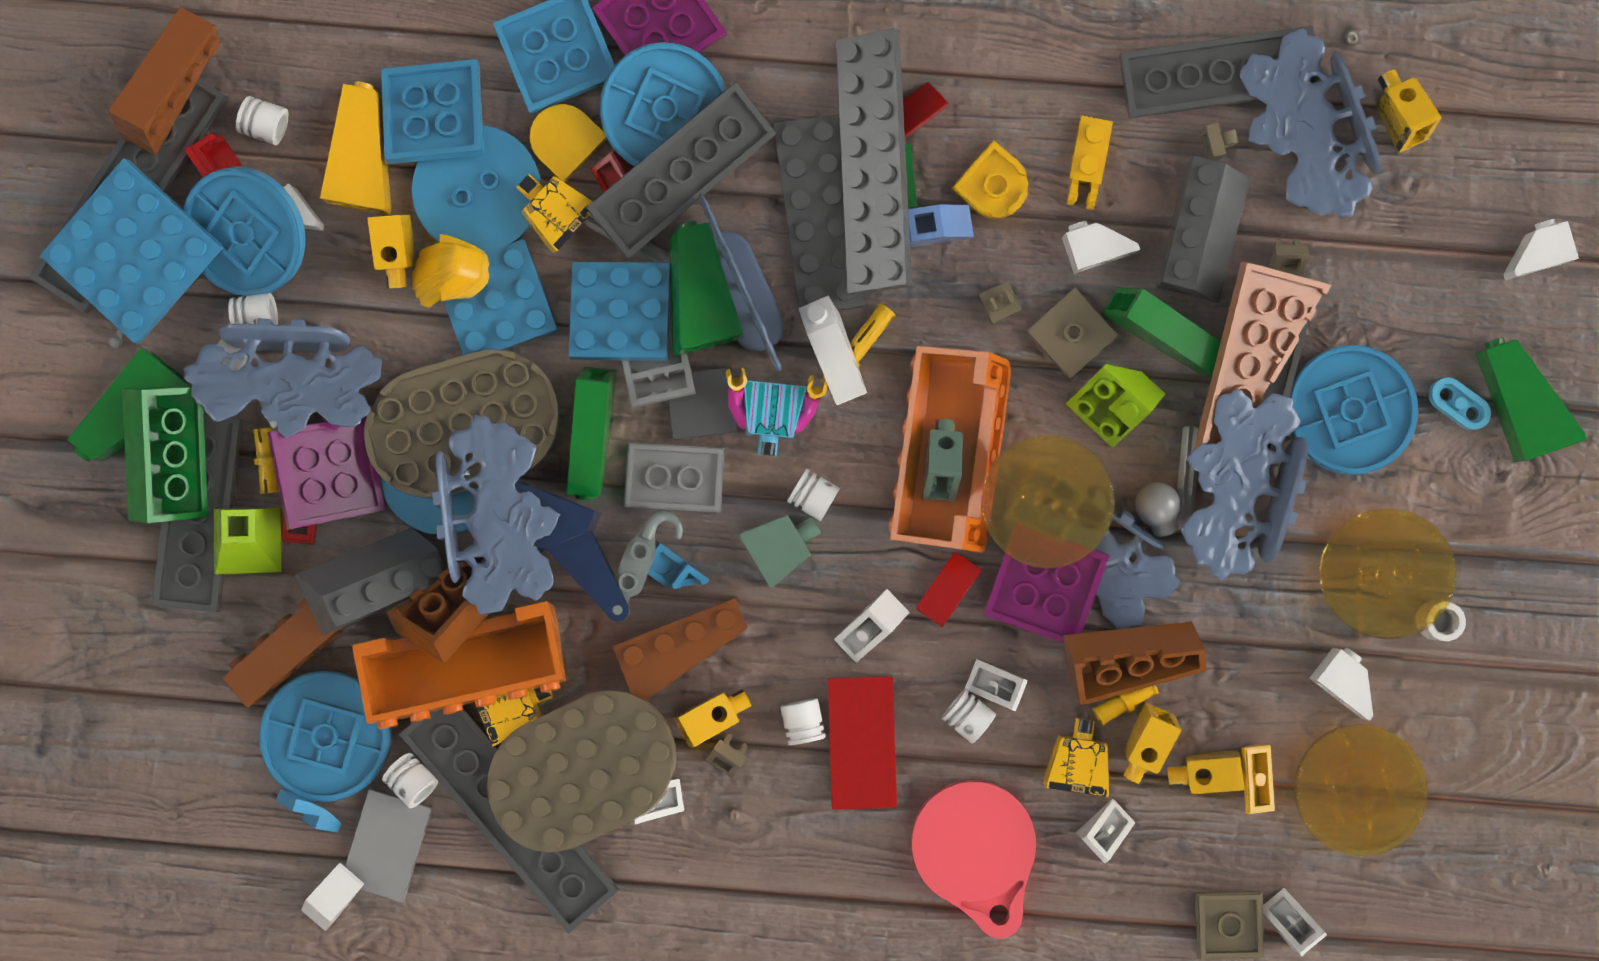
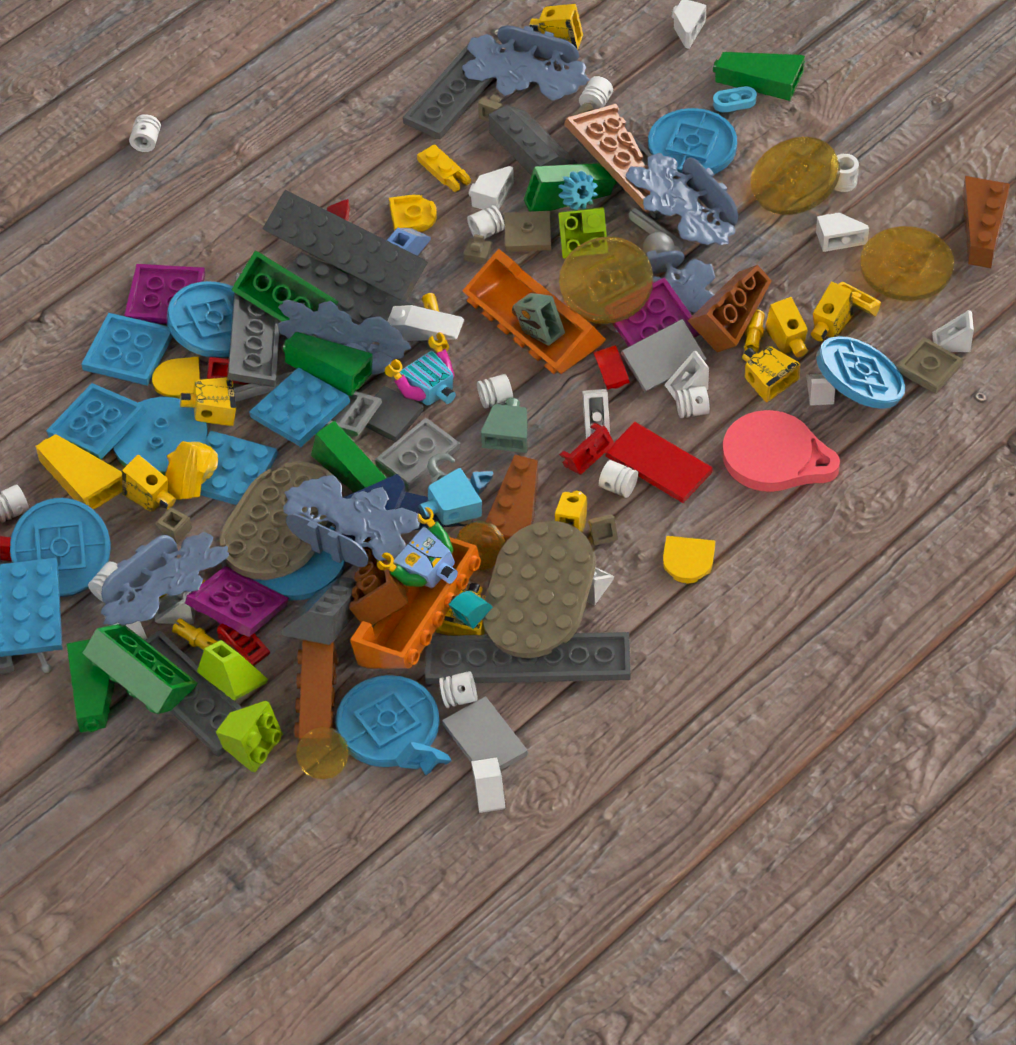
camera: 50 degrees left, 35 degrees down
(181, 628) = (250, 734): none -> lime slope
(228, 713) = (322, 753): none -> clear yellow tile
(377, 311) = (174, 524): none -> dark tan slope
(496, 645) = (425, 558): none -> torso
(498, 725) = (469, 608): none -> teal brick
(596, 655) = (486, 538): none -> clear yellow tile
(610, 593) = (453, 499): none -> medium azure torso
(748, 163) = (269, 284): none -> green slope
(765, 869) = (688, 558): none -> yellow tile
(812, 660) = (589, 450): none -> red hinge
(1006, 635) = (660, 355): none -> light grey tile
(1040, 283) = (486, 222): none -> white piece
(1146, 872) = (860, 372): none -> dark azure plate
(1154, 360) = (583, 197): none -> medium azure gear
(1334, 243) = (596, 92): none -> white piece
(1500, 827) = (984, 214): none -> dark orange wedge

